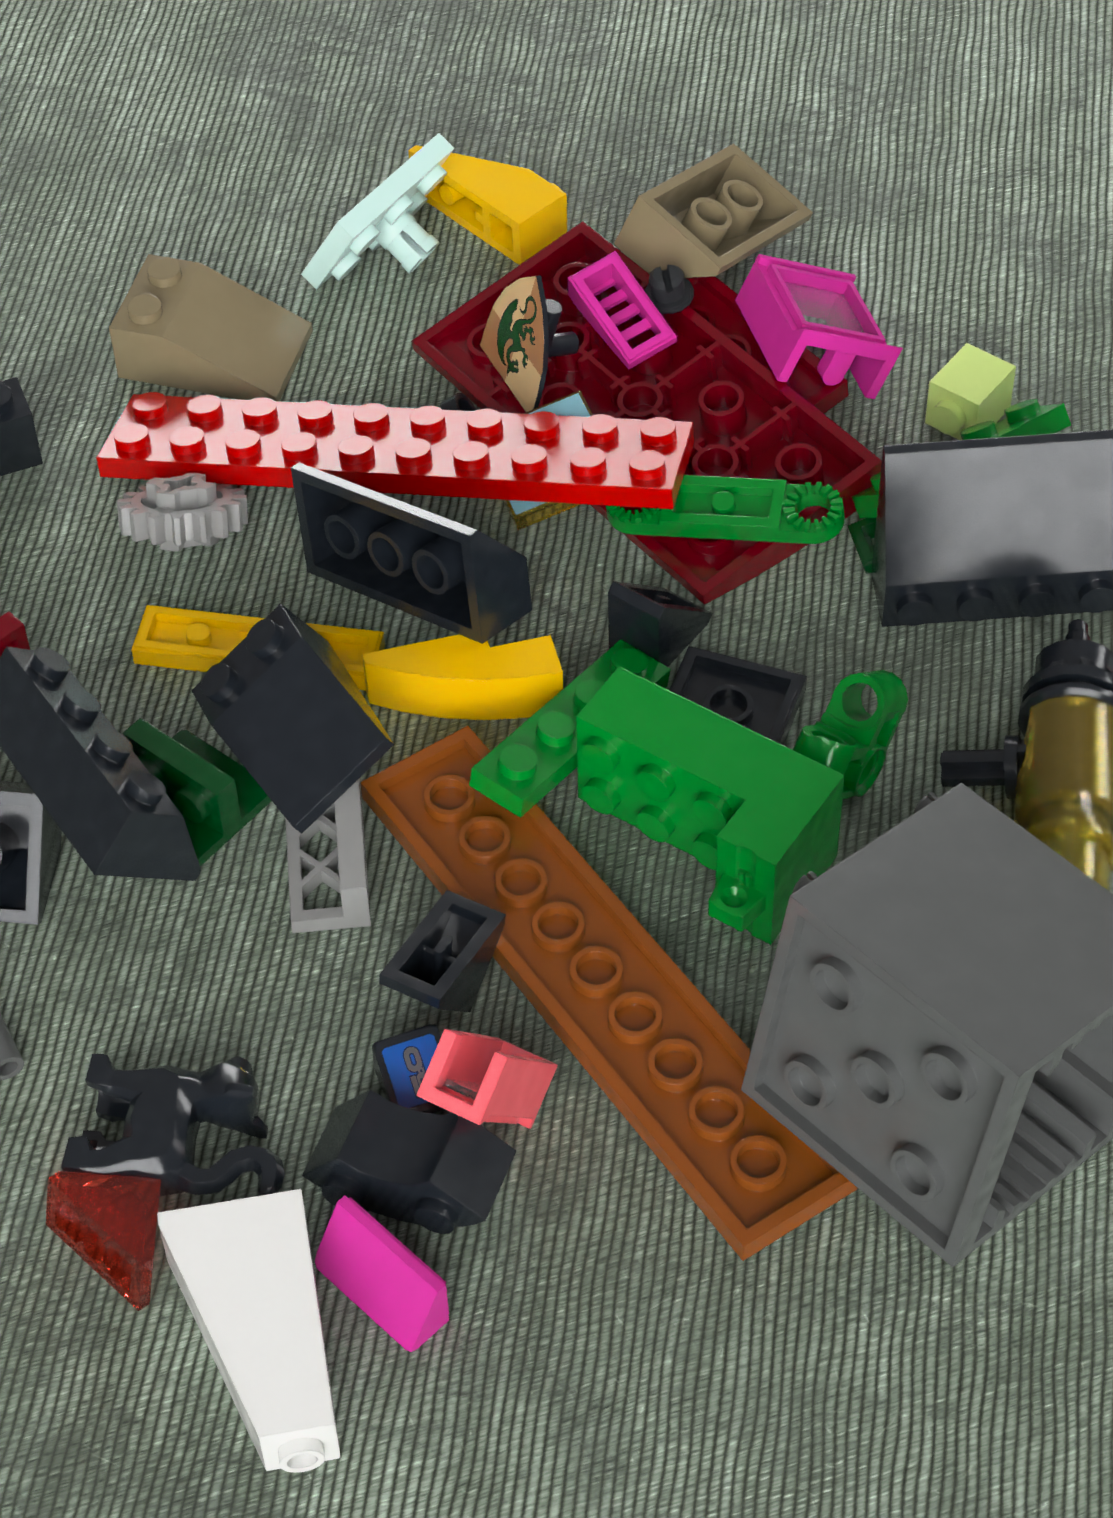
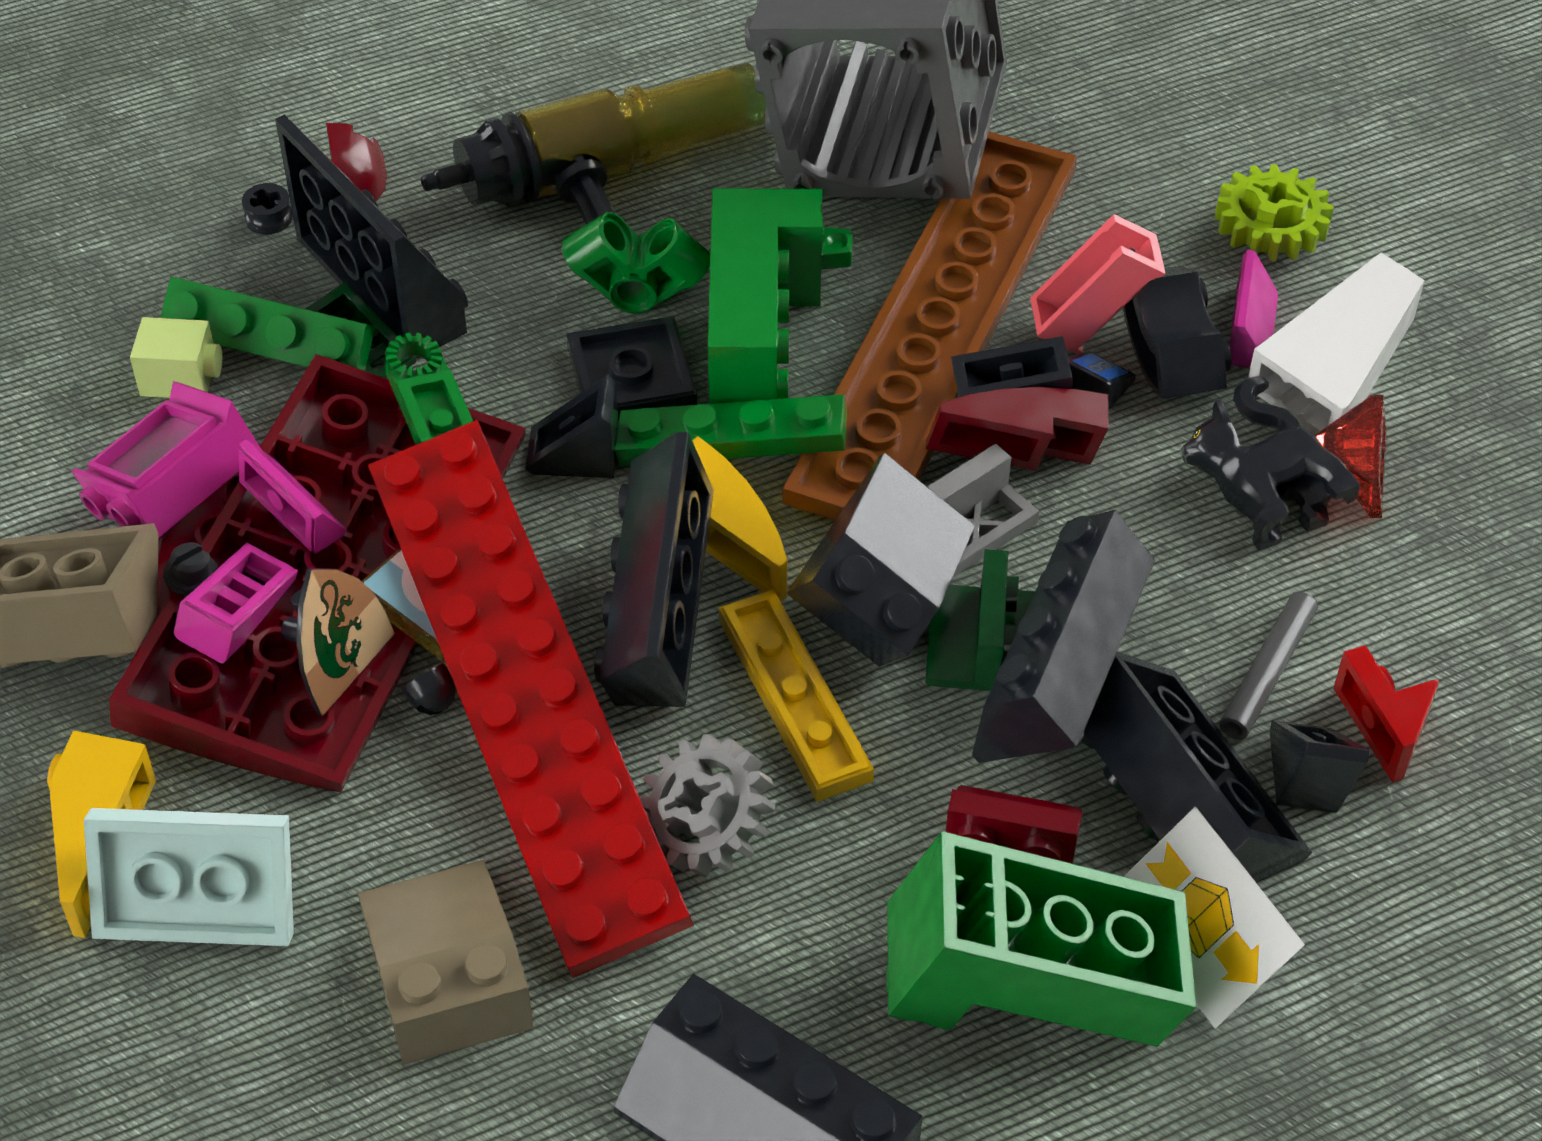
camera: 125 degrees left, 0 degrees up
(371, 933) = (1023, 424): none -> dark red slope
(506, 1408) = (1273, 212): none -> lime gear
(705, 372) = (287, 499): none -> dark pink slope

